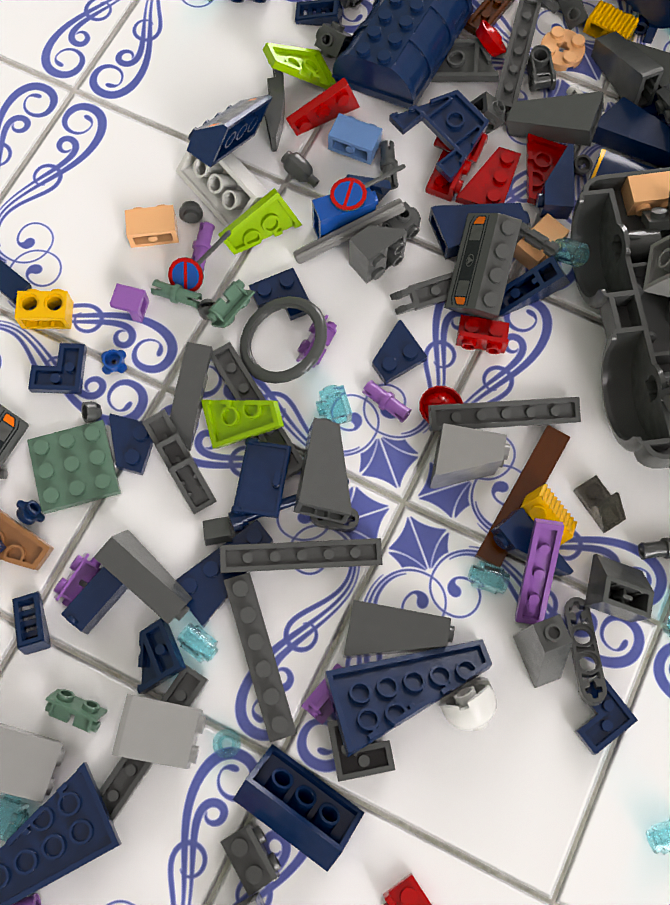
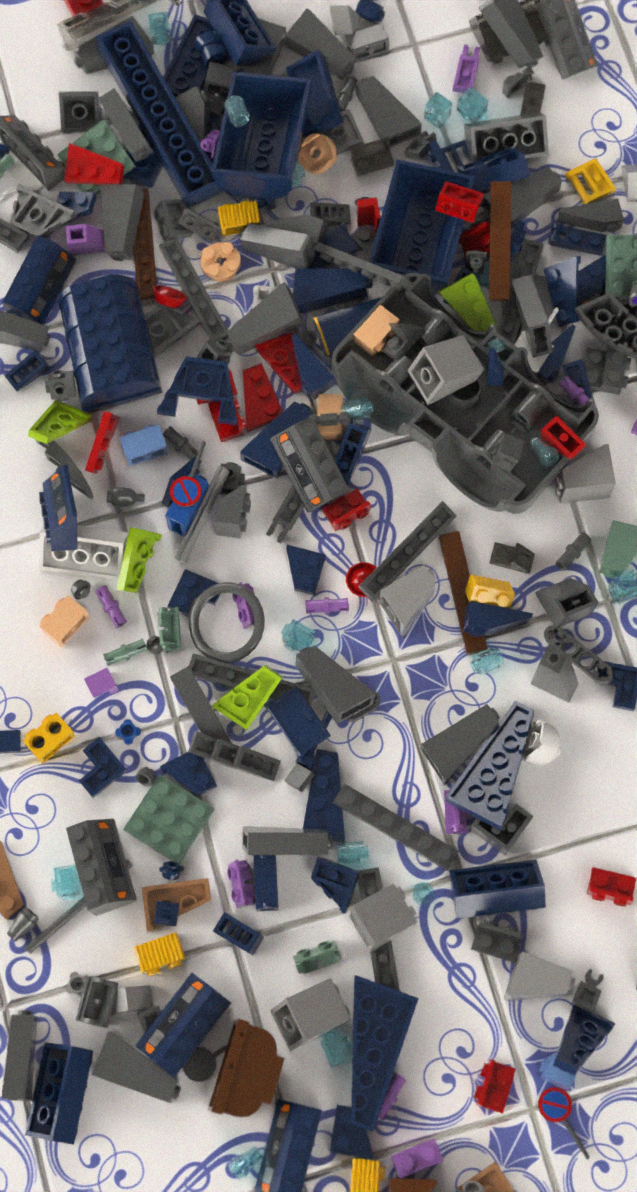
camera: 40 degrees left, 0 degrees up
(188, 271) = (121, 631): piece -> none
(300, 555) = (364, 746): dark grey plate -> none
(539, 571) = (513, 631): medium lavender plate -> none
(540, 69) = (224, 294): dark grey piece -> none

